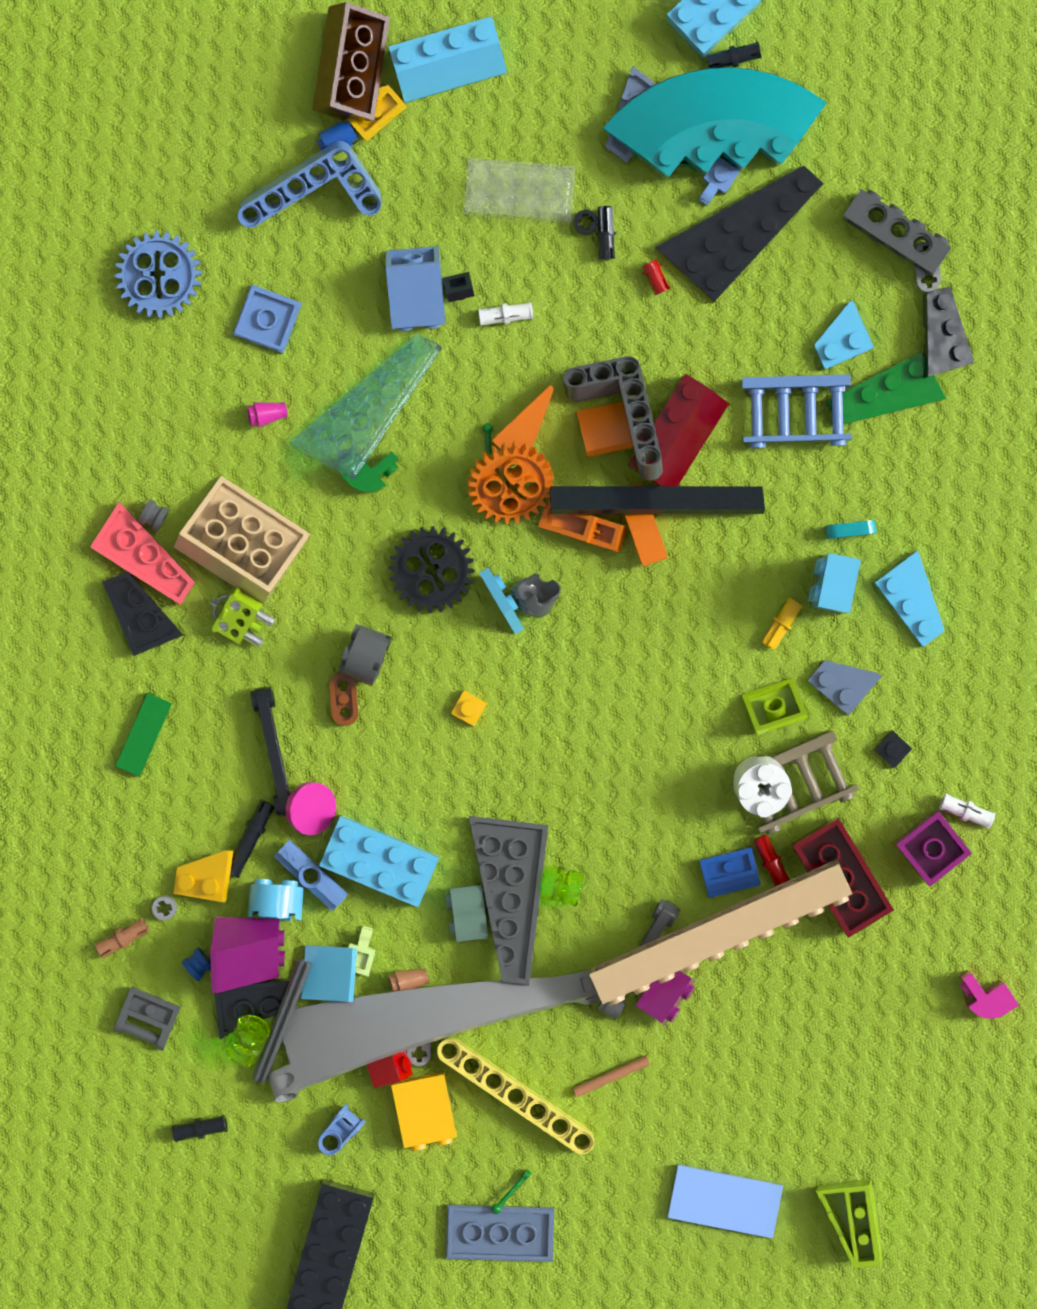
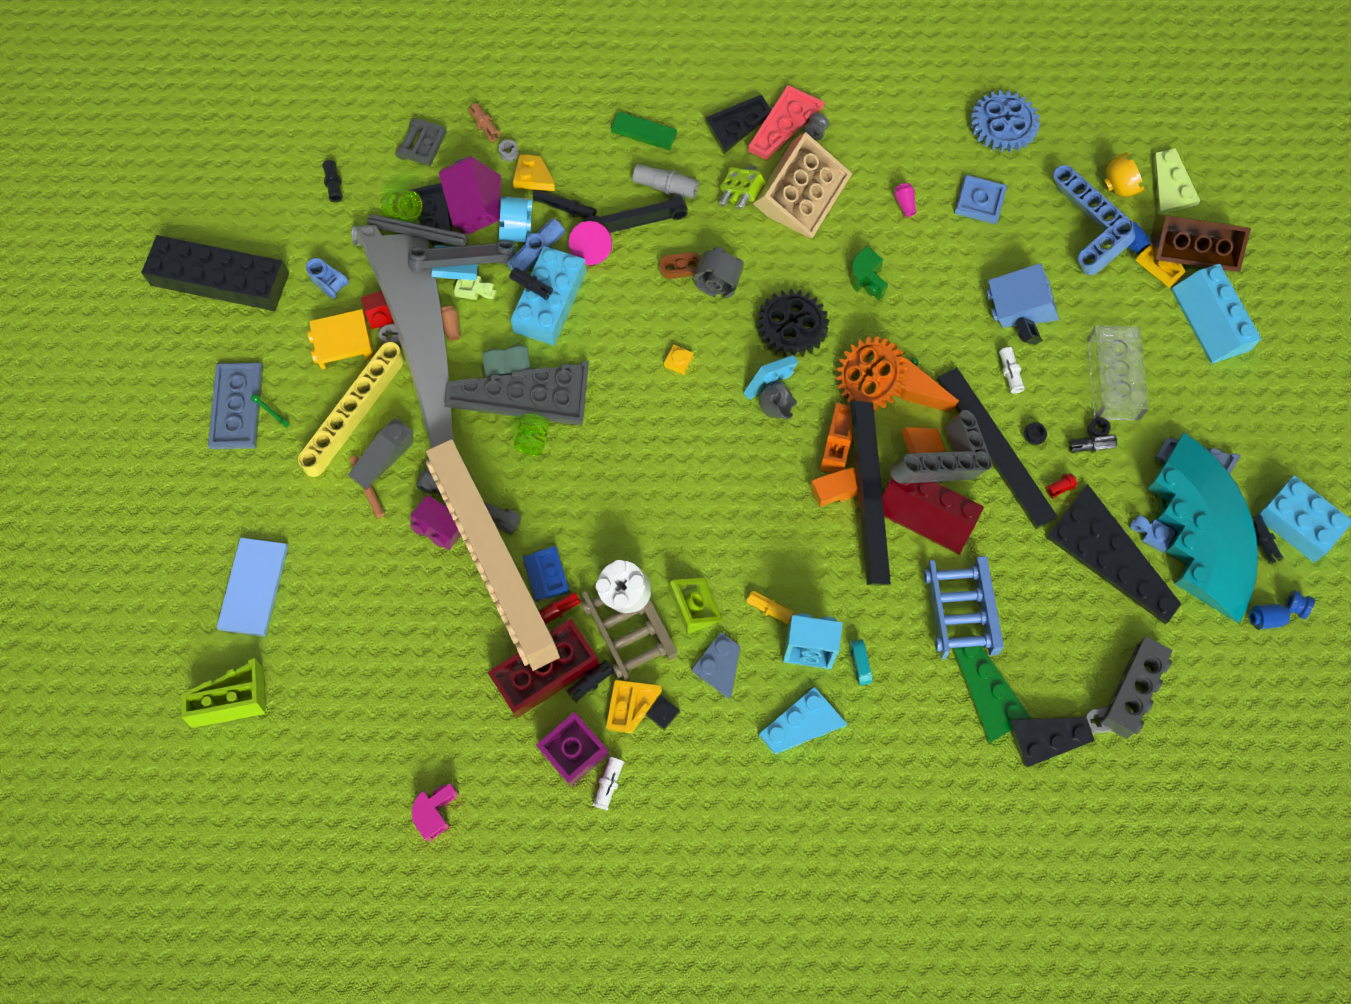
camera: 90 degrees right, 20 degrees down
(225, 711) = (666, 181): none -> light grey piece
(253, 139) = (1123, 177): none -> yellow cylinder
(258, 74) = (1173, 183): none -> yellowish green wing
(324, 965) = (421, 259): none -> dark grey piece
(359, 420) = (906, 259): clear light blue wing -> none
(378, 882) = (530, 283): none -> black axle
(578, 1059) = (382, 453): none -> dark grey slope
(588, 297) = (1035, 433): none -> black plate
(602, 344) = (1000, 452): none -> black tile
(812, 34) = (1300, 604): none -> blue wheel
(823, 71) = (1269, 616): none -> blue brick
(843, 338) = (1031, 648): medium azure wing -> none
(855, 826) = (590, 681): none -> black pin
(884, 784) = (630, 704): none -> yellow wing

